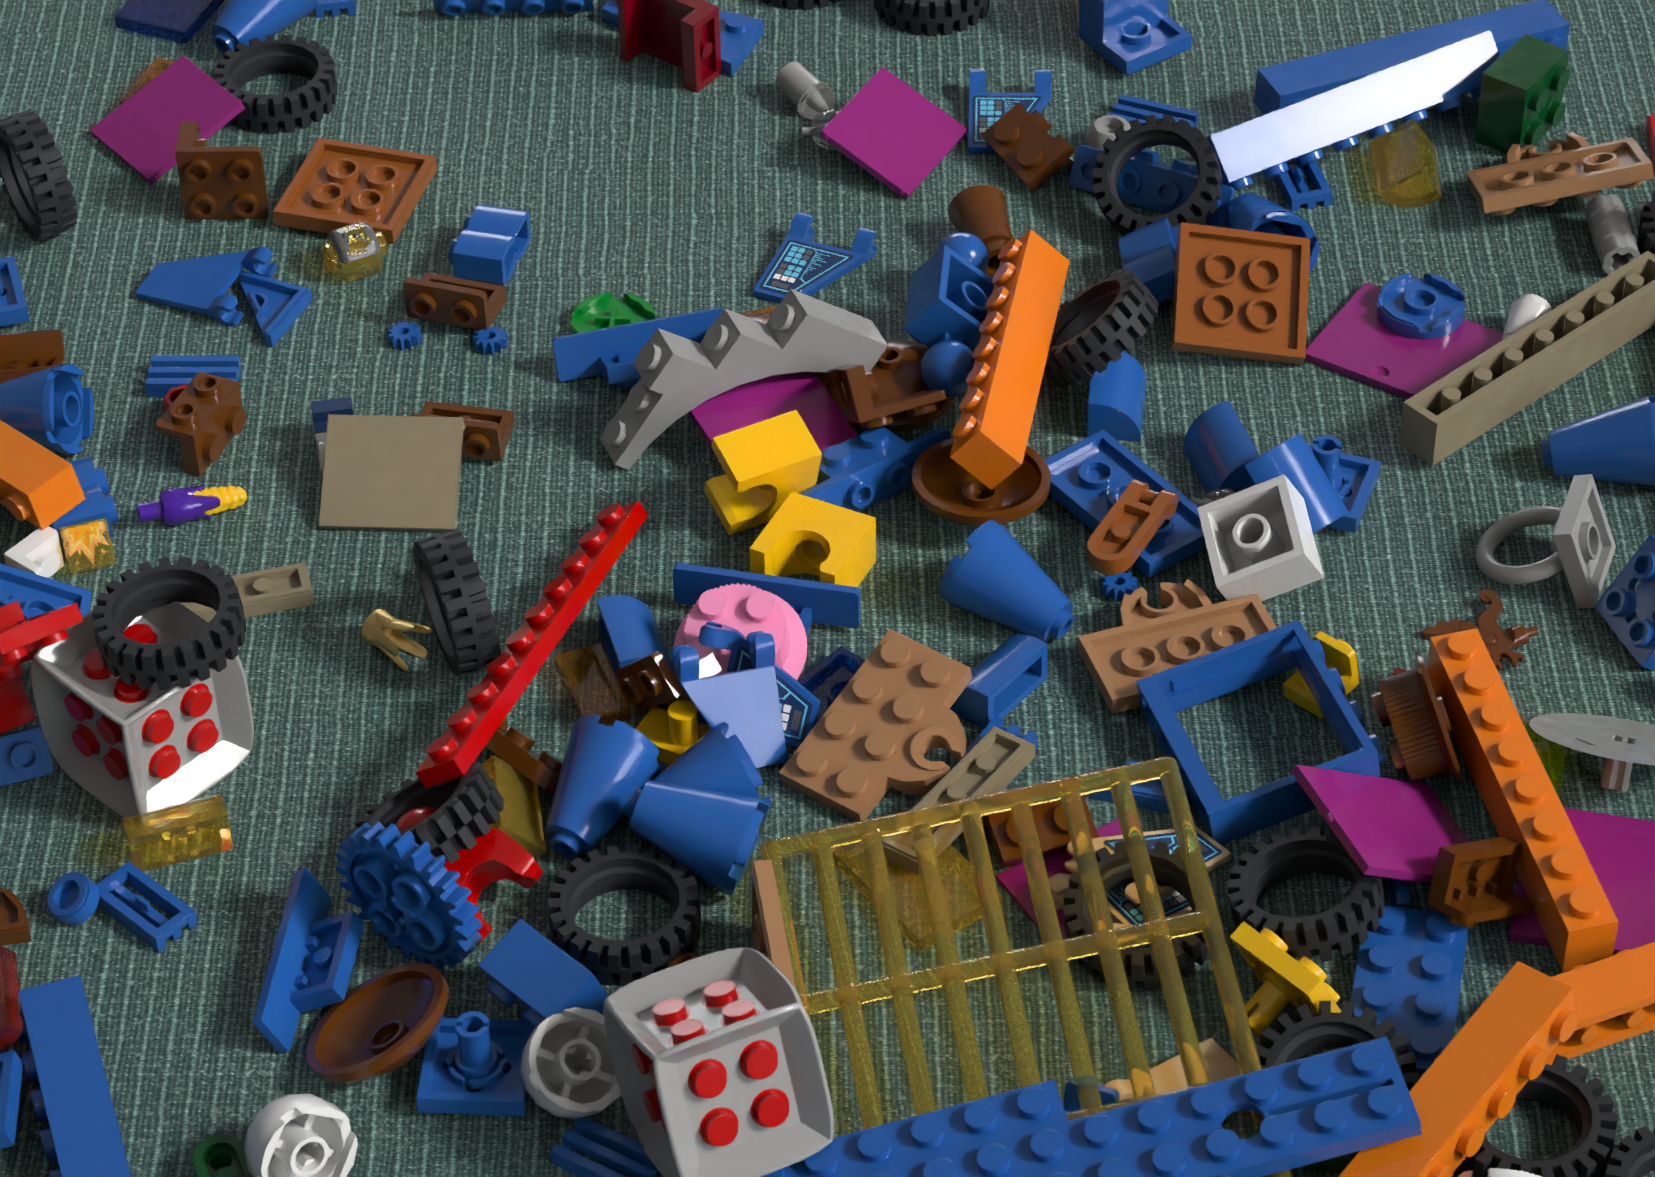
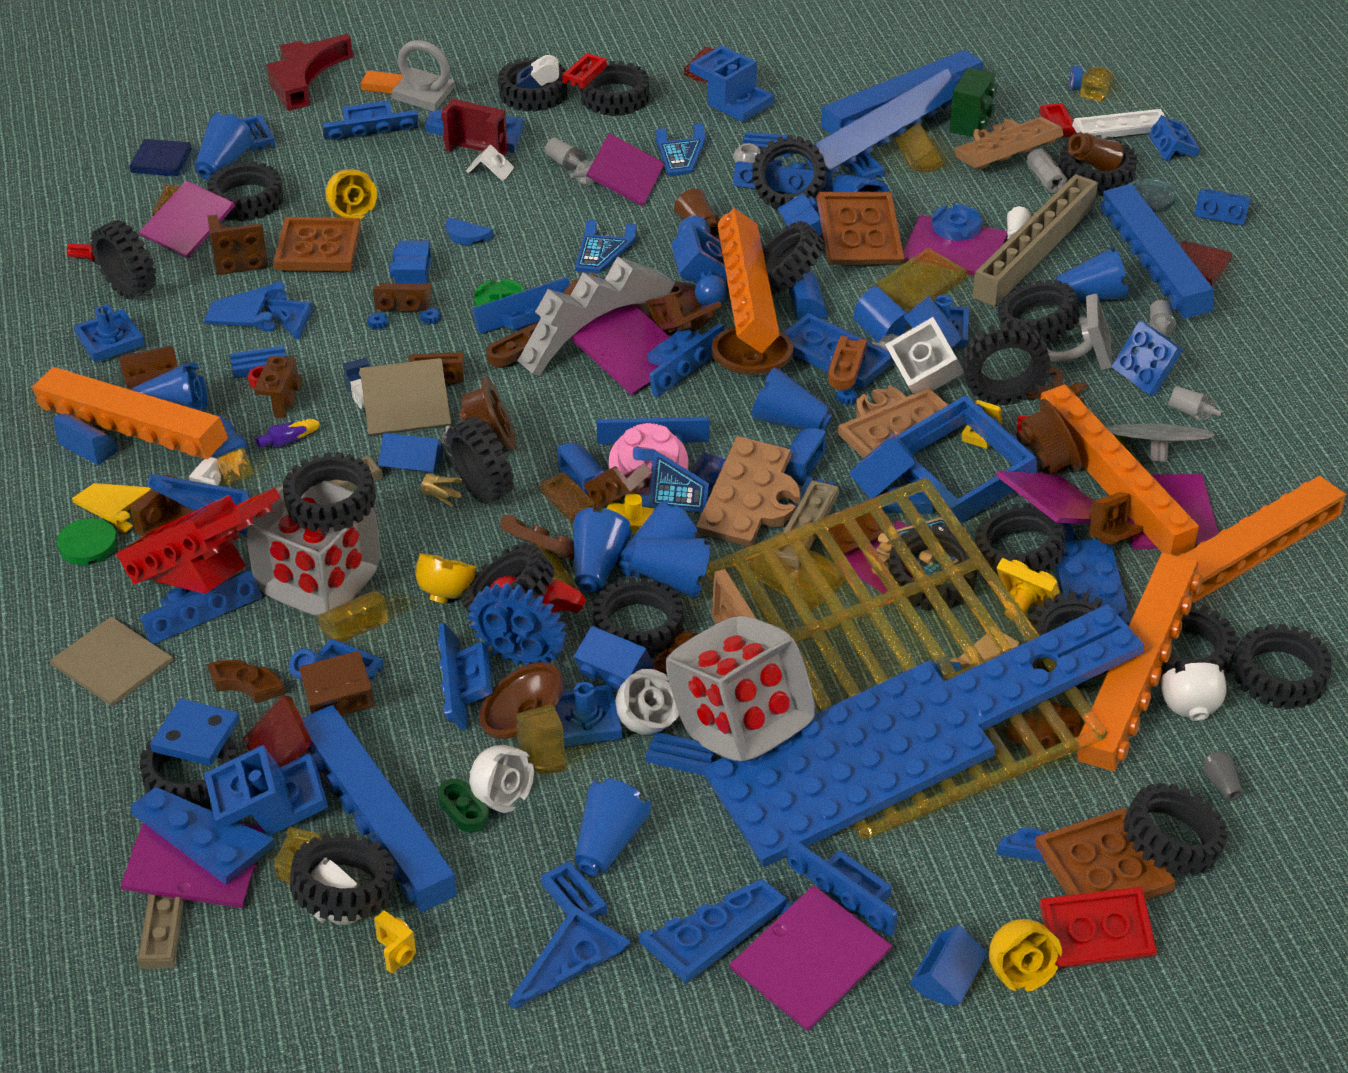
camera: 15 degrees left, 0 degrees up
(106, 942) = (339, 683): none -> reddish brown bracket
(334, 789) = (443, 577): none -> yellow cylinder
(354, 252) = (331, 278): clear yellow head -> none
(366, 570) = (411, 452): none -> blue brick
(382, 1096) = (542, 738): none -> clear yellow brick
(434, 114) = (351, 193): none -> yellow cylinder
(506, 529) = (489, 407): none -> reddish brown piece
(530, 645) = (531, 478): red plate -> none
(587, 416) = (509, 348): none -> reddish brown plate
(598, 204) = (466, 233): none -> blue tile
(687, 91) = (494, 161): none -> white bracket
(740, 698) = (664, 485): flag -> none
(761, 470) = (632, 360): yellow piece -> none
(817, 541) = (670, 396): yellow piece -> none
(1027, 147) = (705, 167): reddish brown bracket -> none
(1119, 721) = (882, 466): none -> blue brick
(1322, 397) = (921, 276): none -> clear yellow tile
(1399, 534) = (1010, 388): none -> black tyre
(1501, 516) = (1039, 295): none -> black tyre

